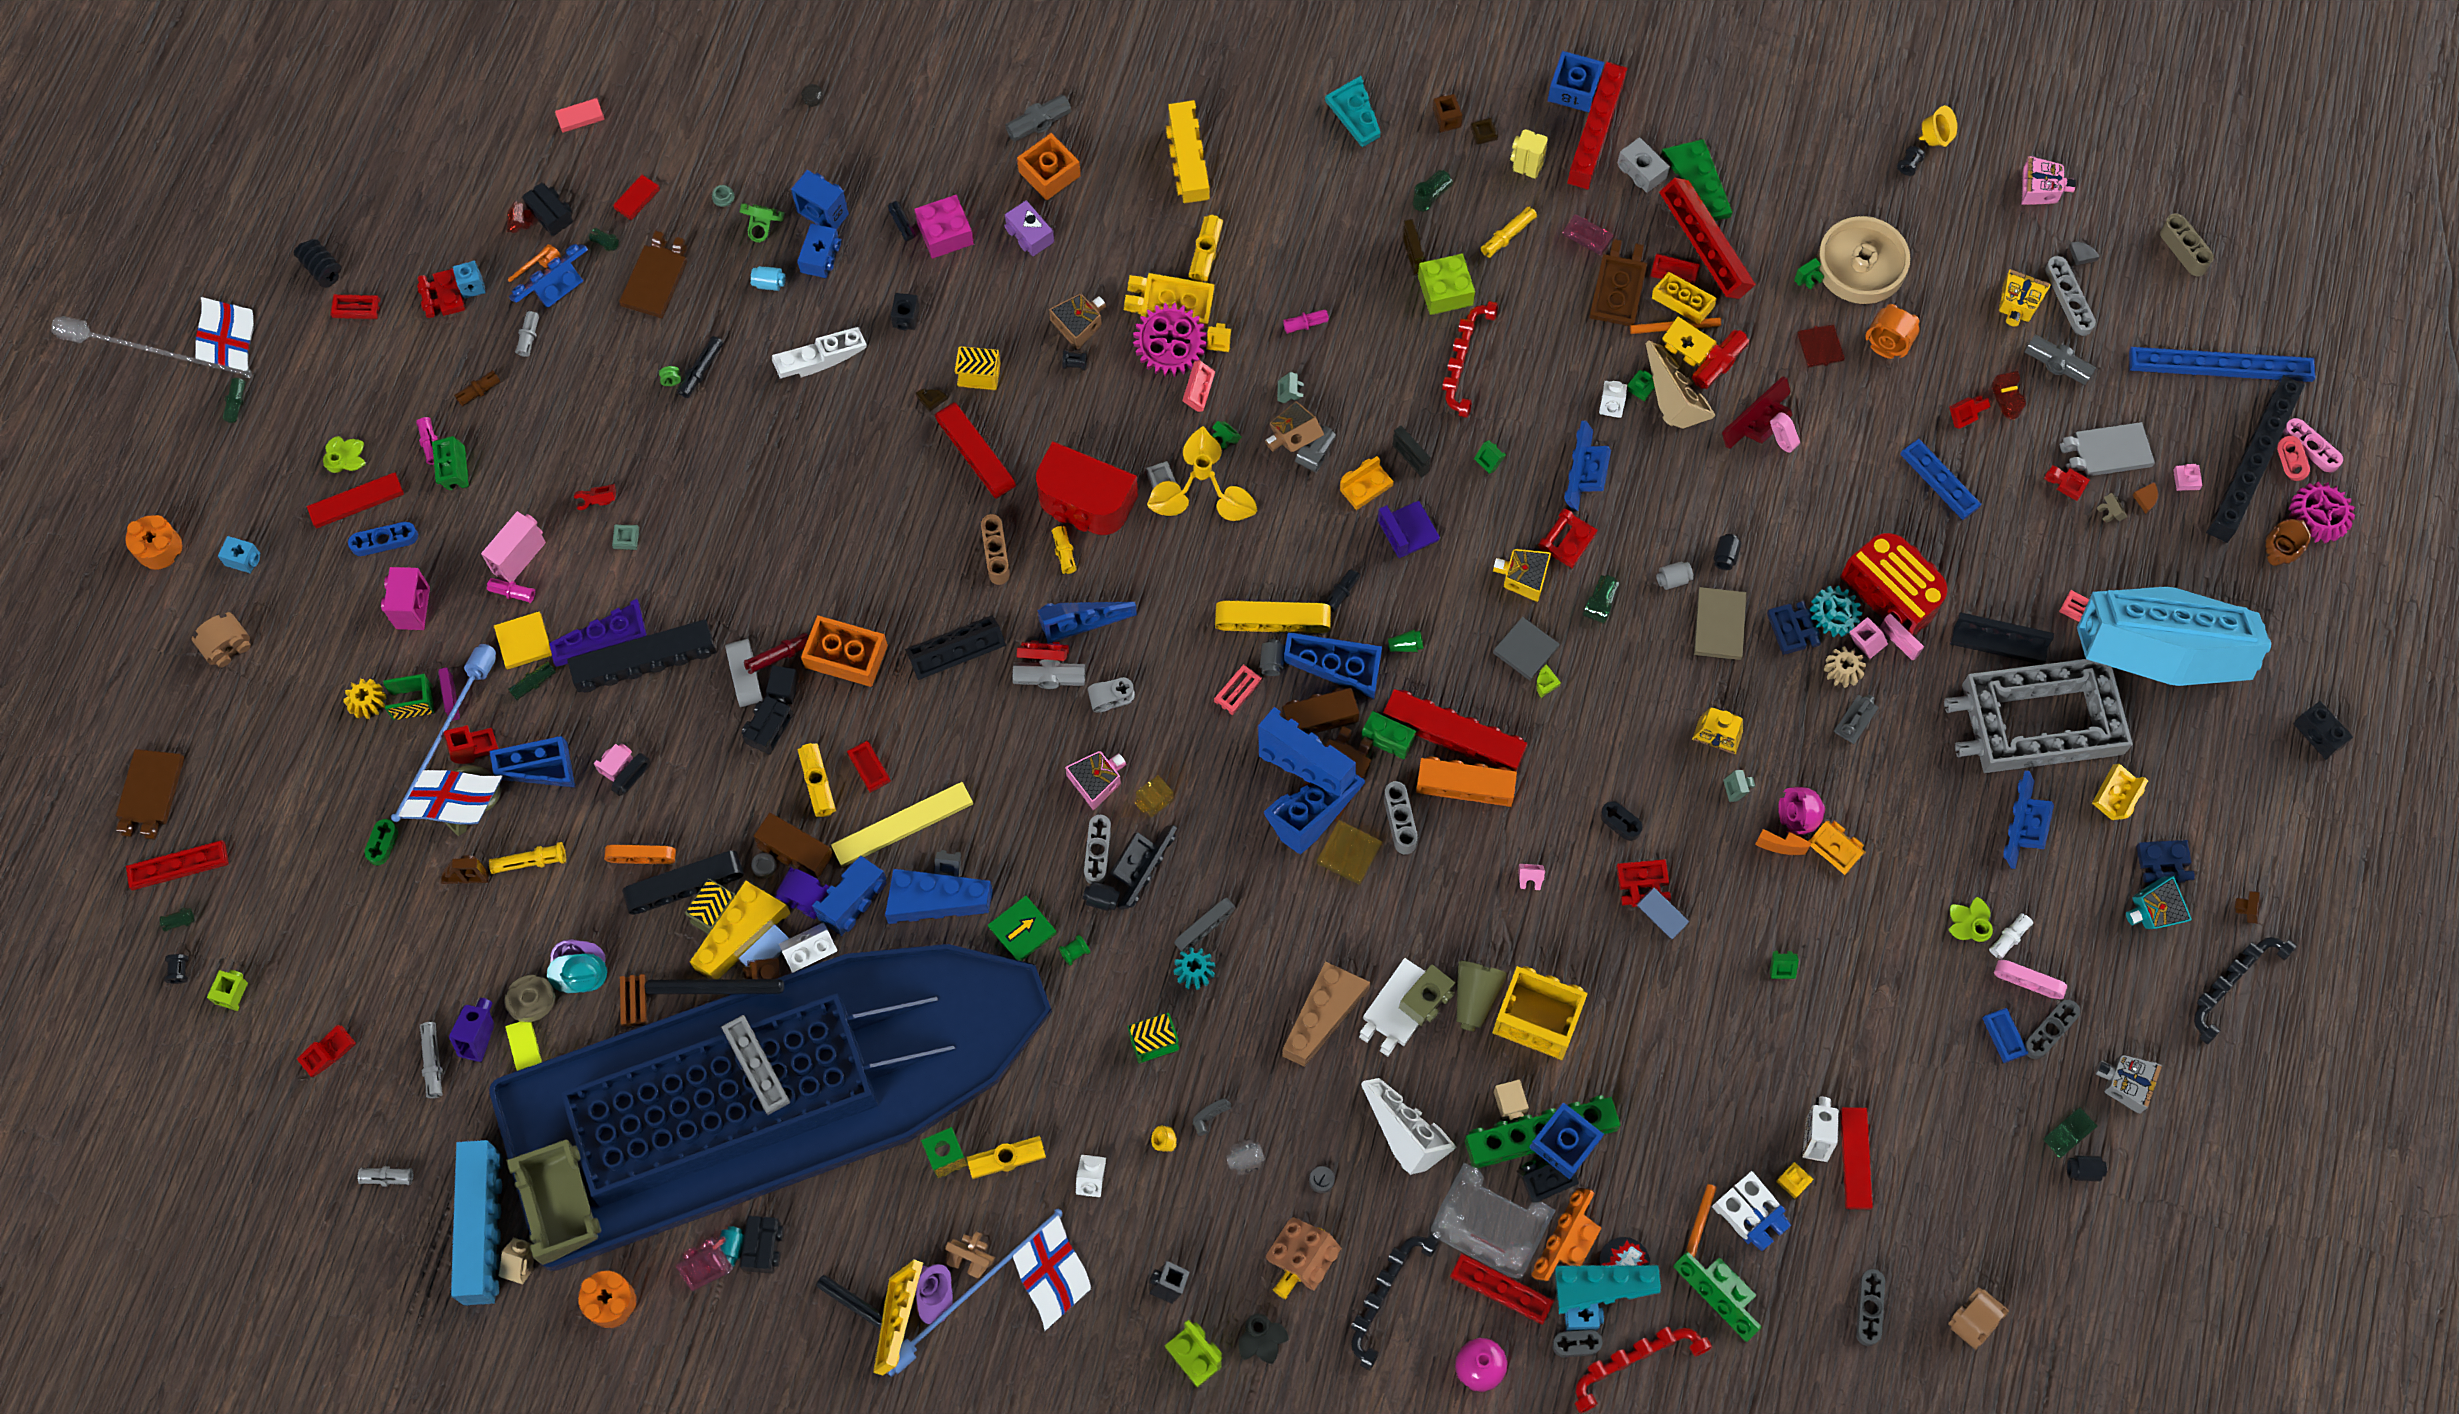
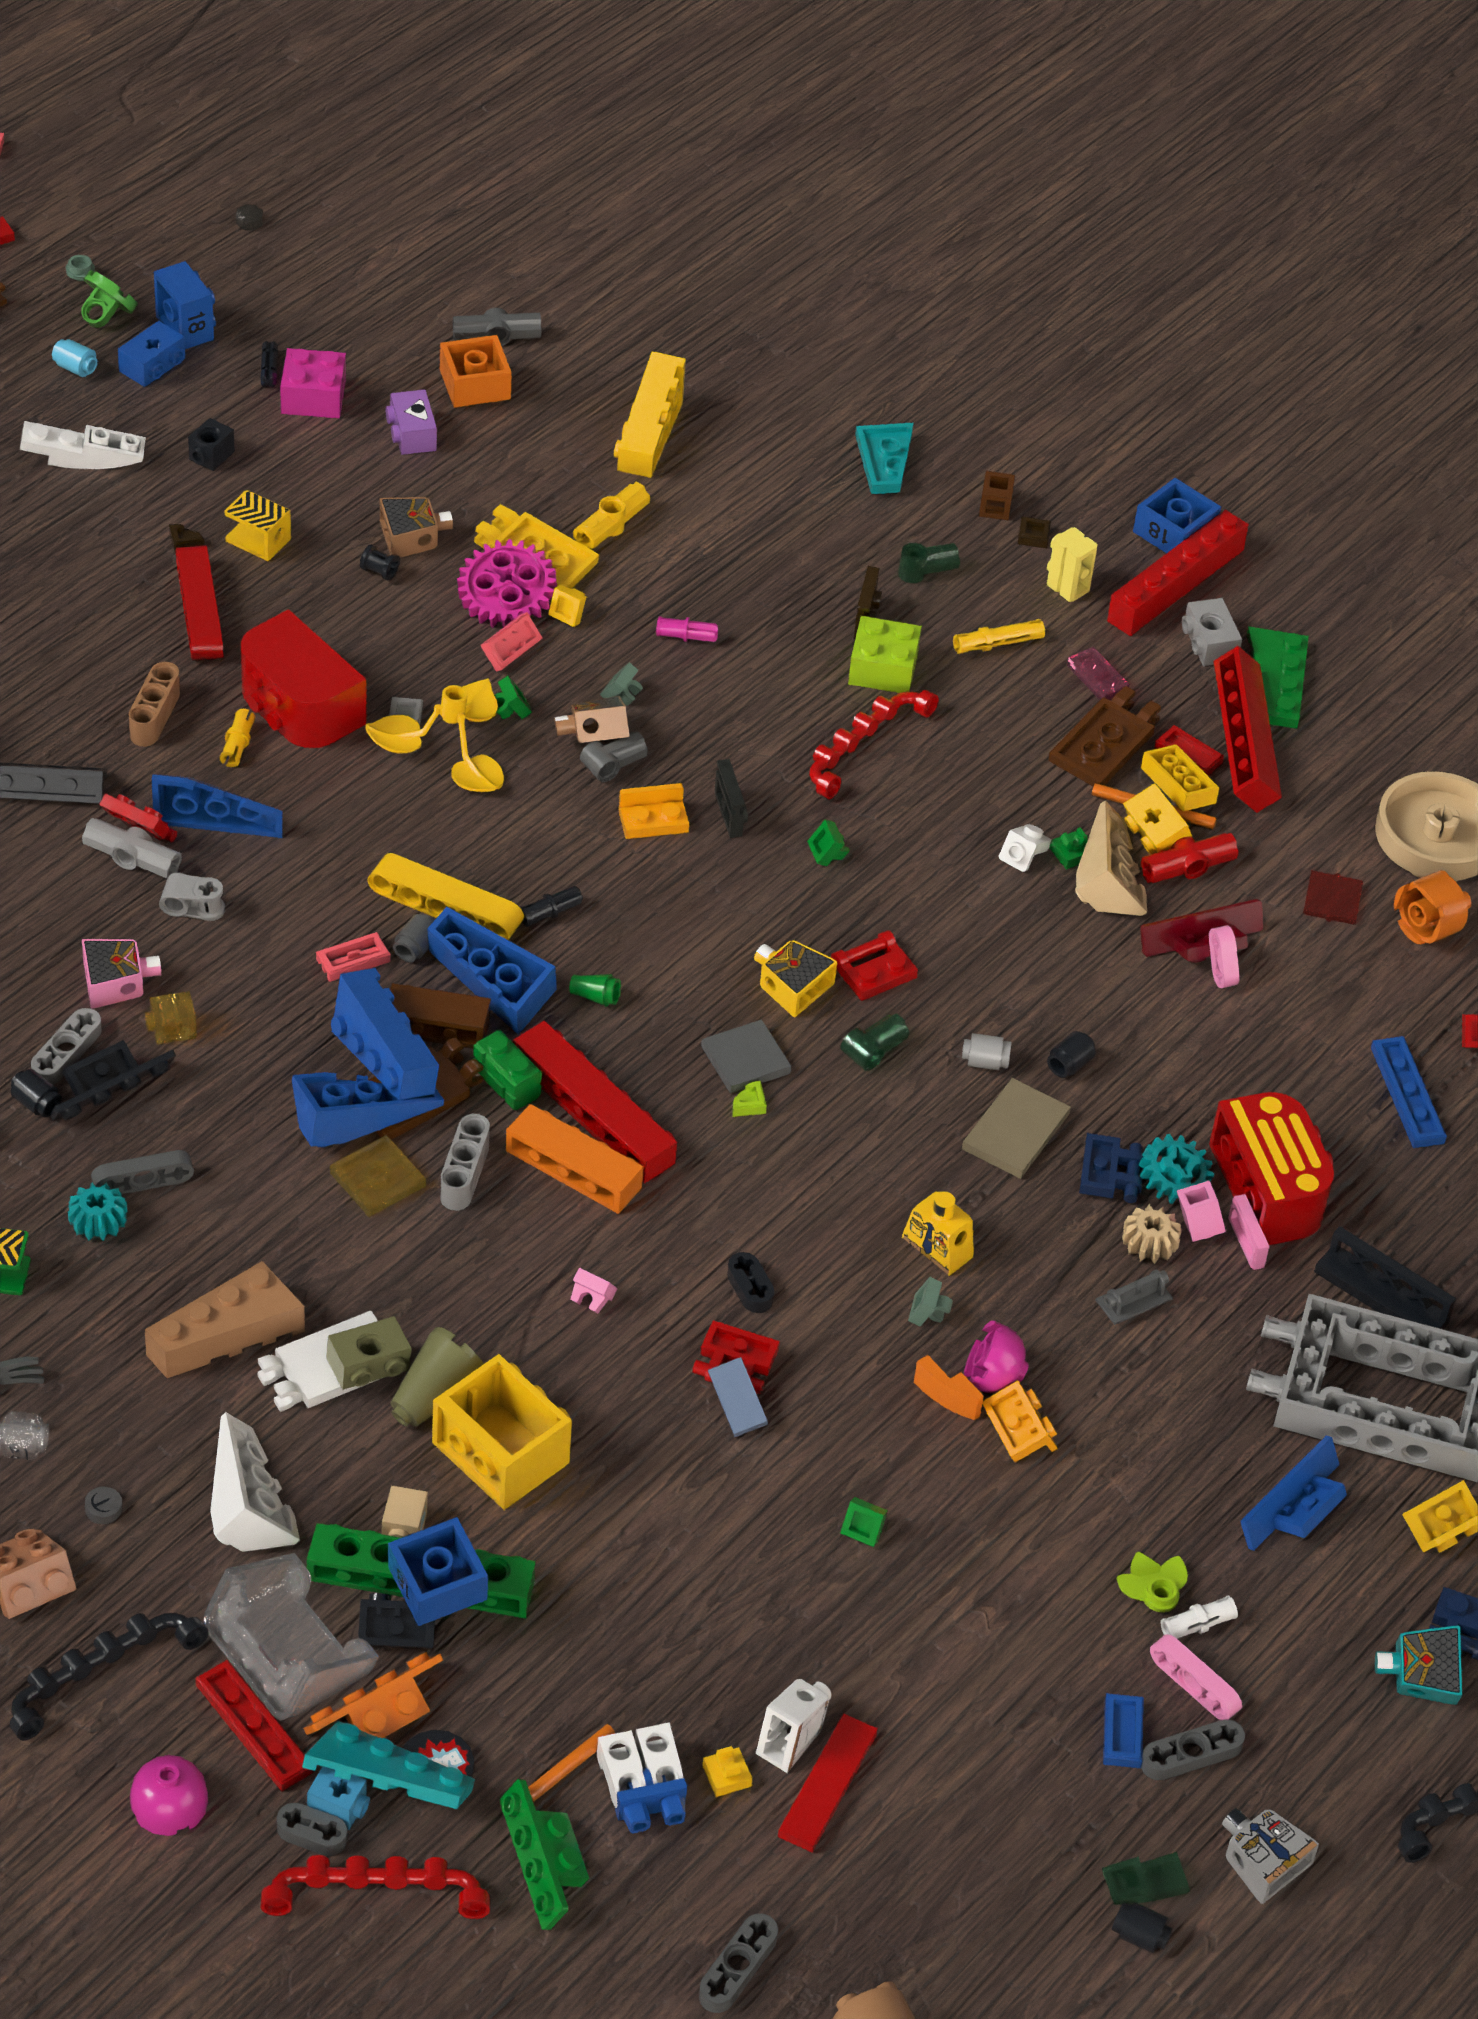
camera: 20 degrees right, 20 degrees down
(1407, 528) = (674, 876): dark purple bracket -> none
(1588, 467) = (943, 899): blue bracket -> none
(1808, 272) = (1359, 813): green tile -> none

